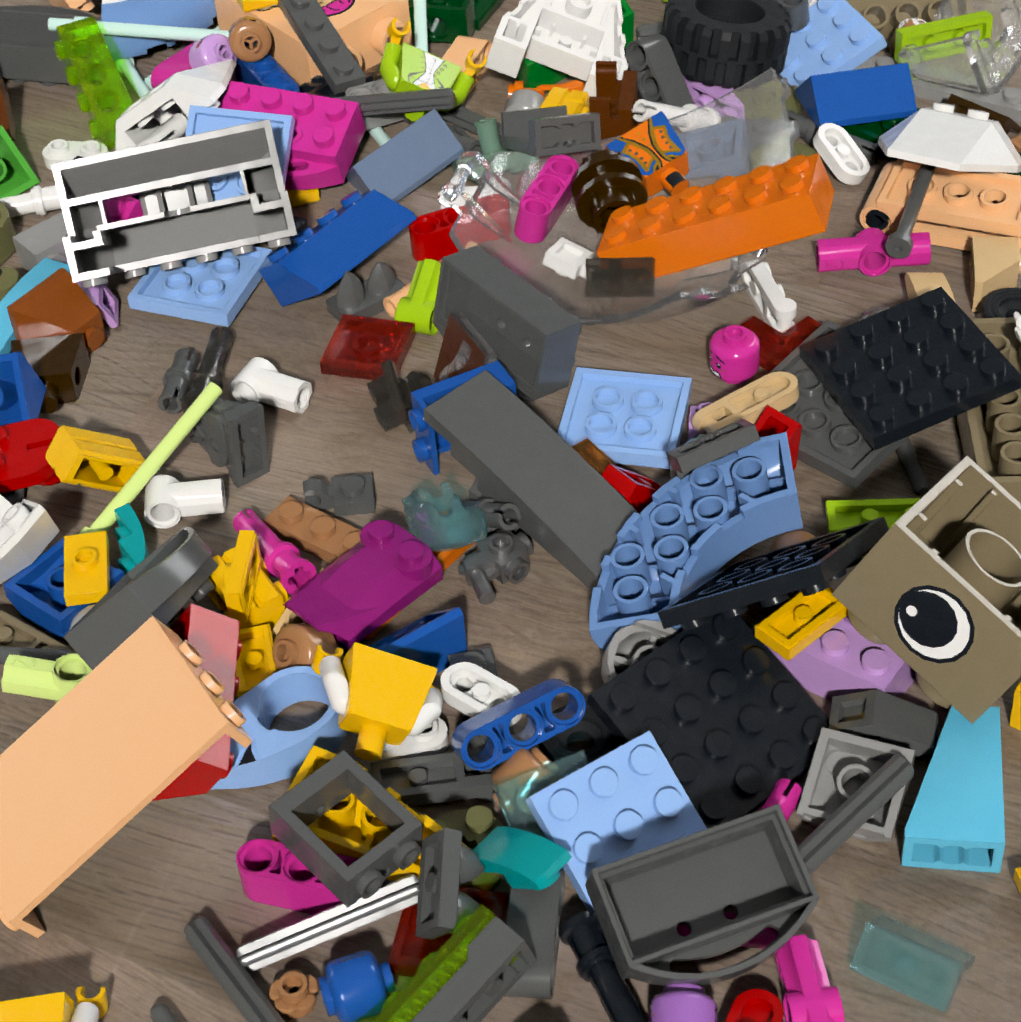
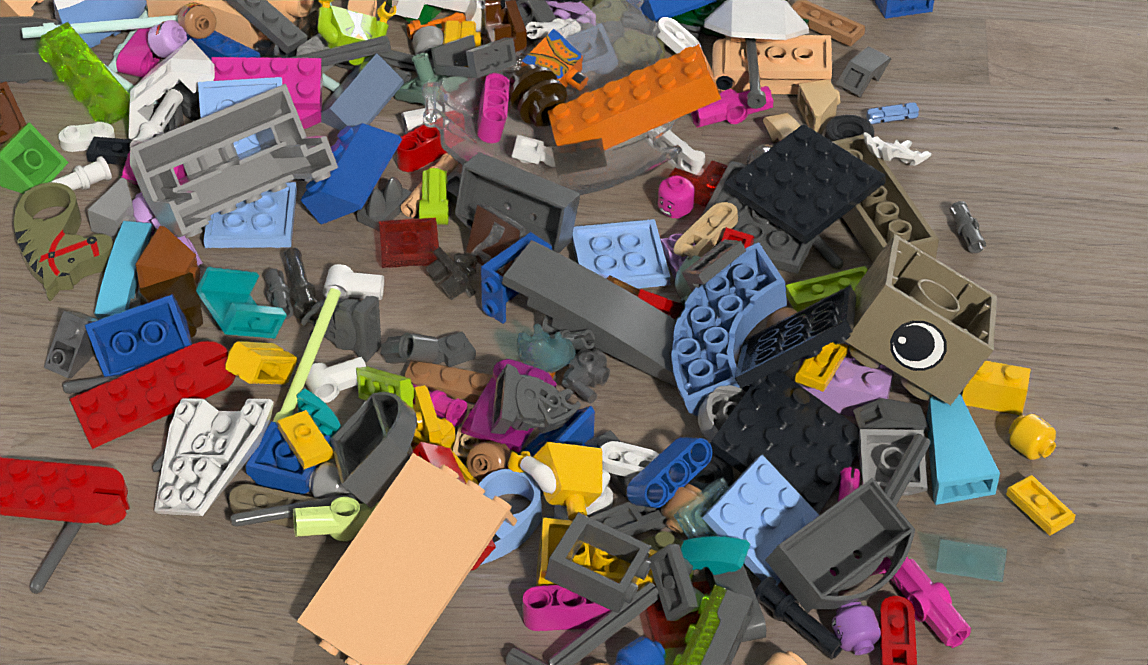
camera: 25 degrees left, 0 degrees up
(114, 381) = (233, 308): none -> teal panel
(220, 525) = (374, 381): none -> lime plate
(286, 481) = (410, 348): none -> dark grey piece
(378, 585) = (529, 403): none -> dark grey piece

